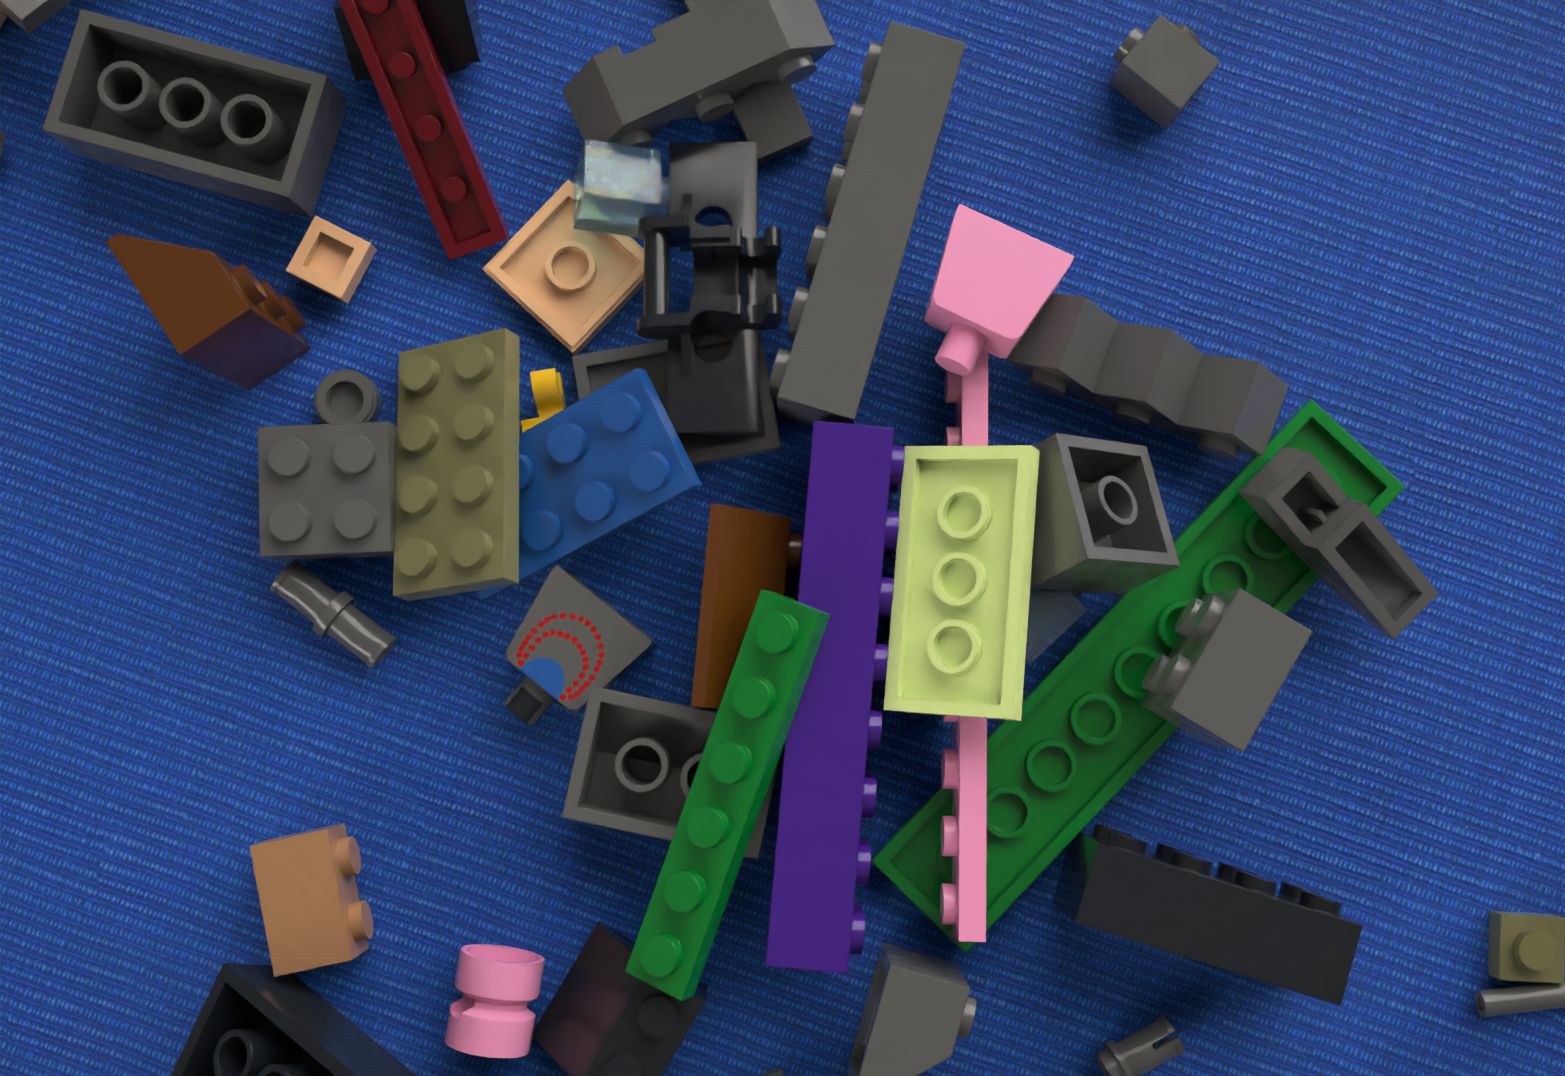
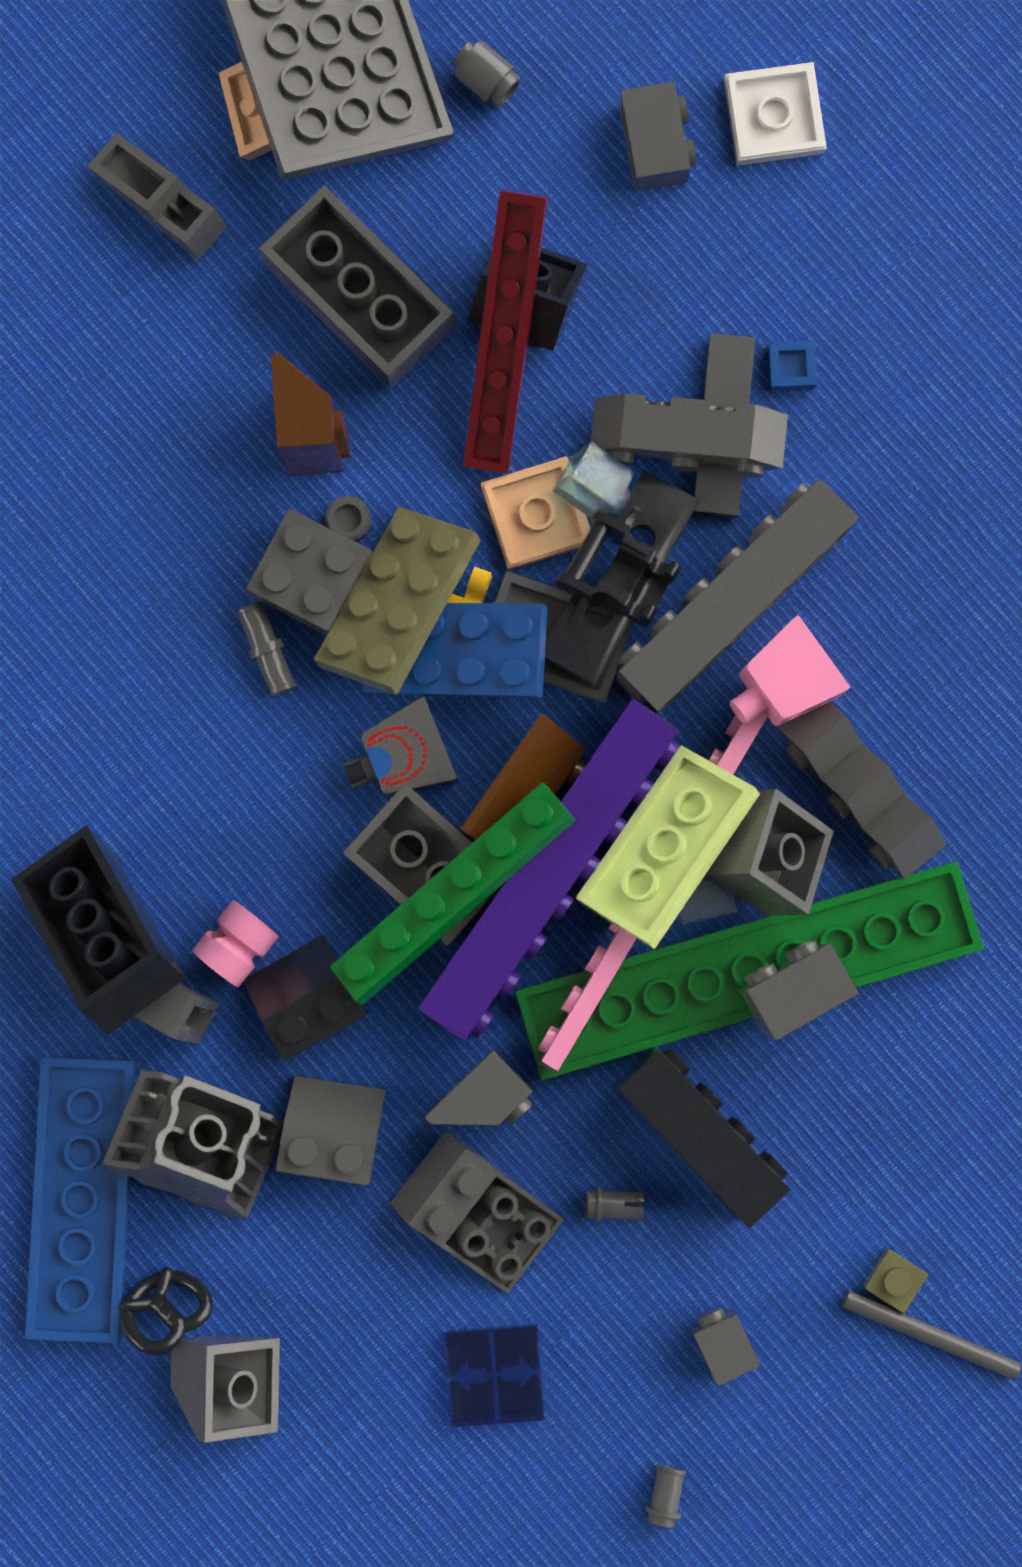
camera: 25 degrees right, 0 degrees up
(311, 899) = (157, 817): medium nougat brick -> none
(331, 259) = (388, 423): light nougat plate -> none
(1162, 69) = (985, 598): dark grey brick -> none
(1339, 540) = (919, 957): dark grey slope -> none

